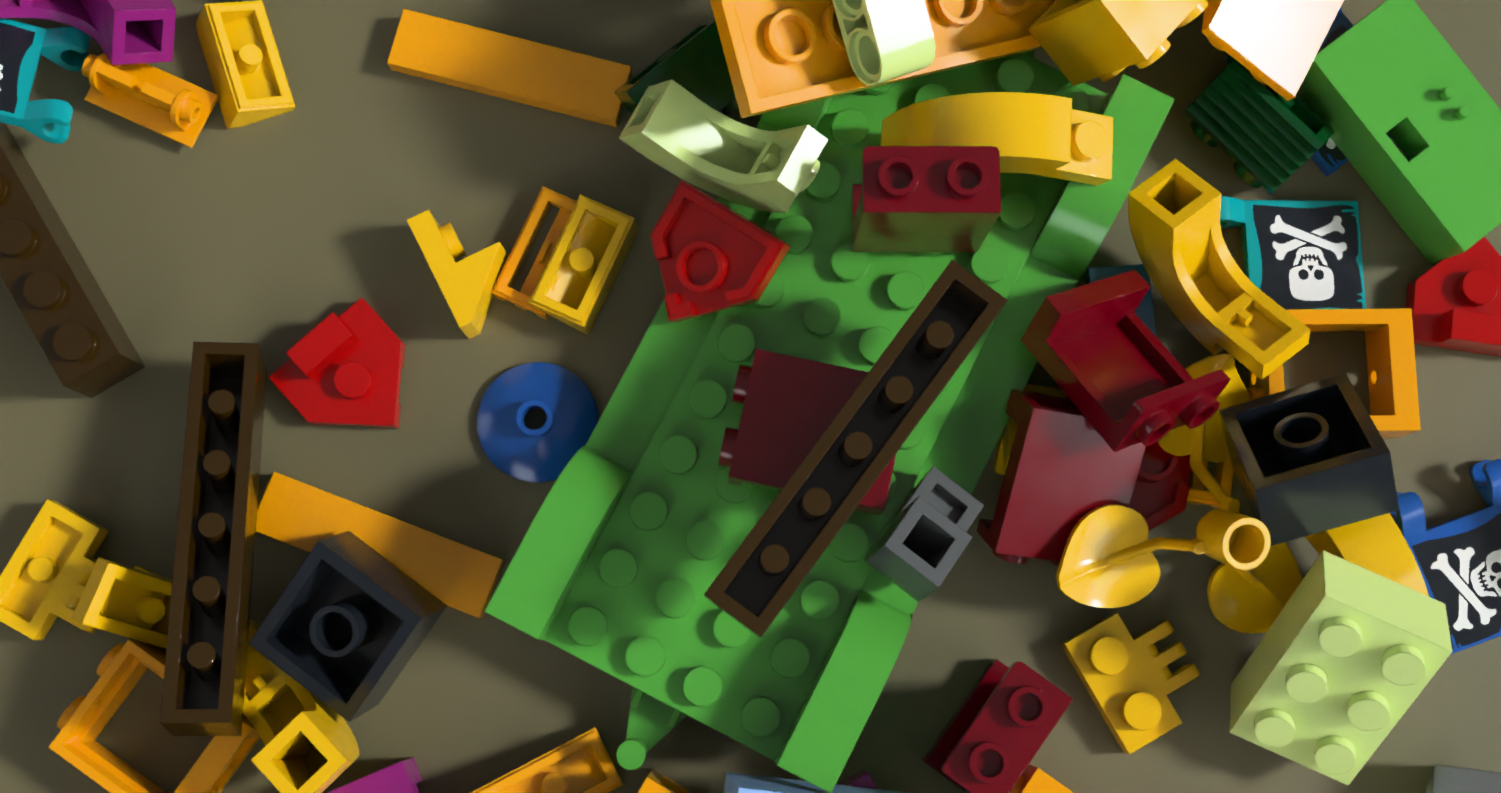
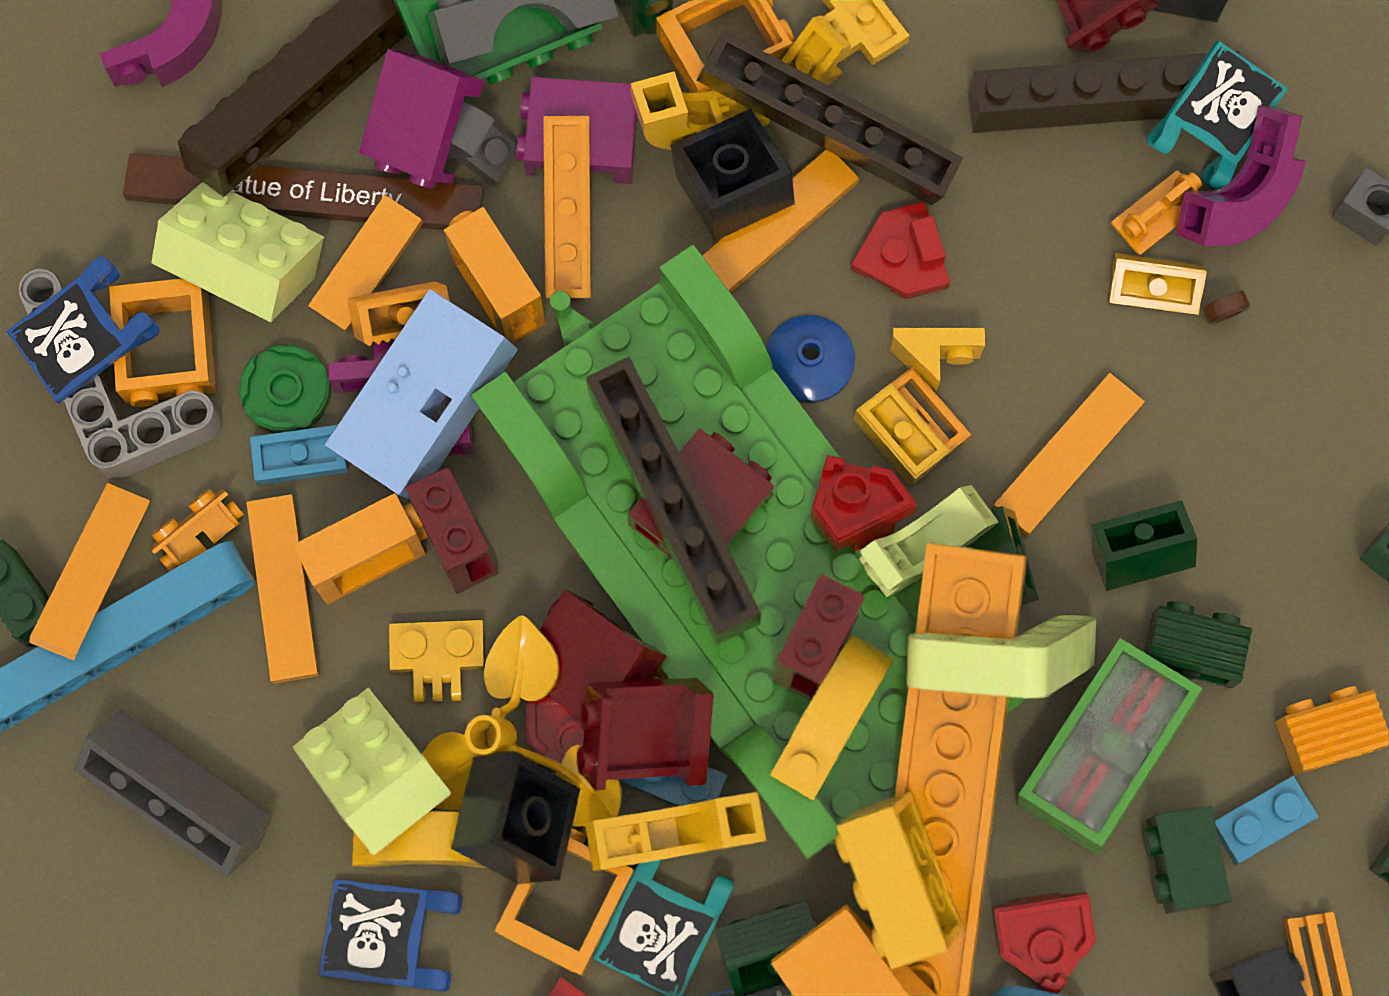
camera: 120 degrees right, 5 degrees down
(925, 535) = (600, 540): dark grey brick -> none

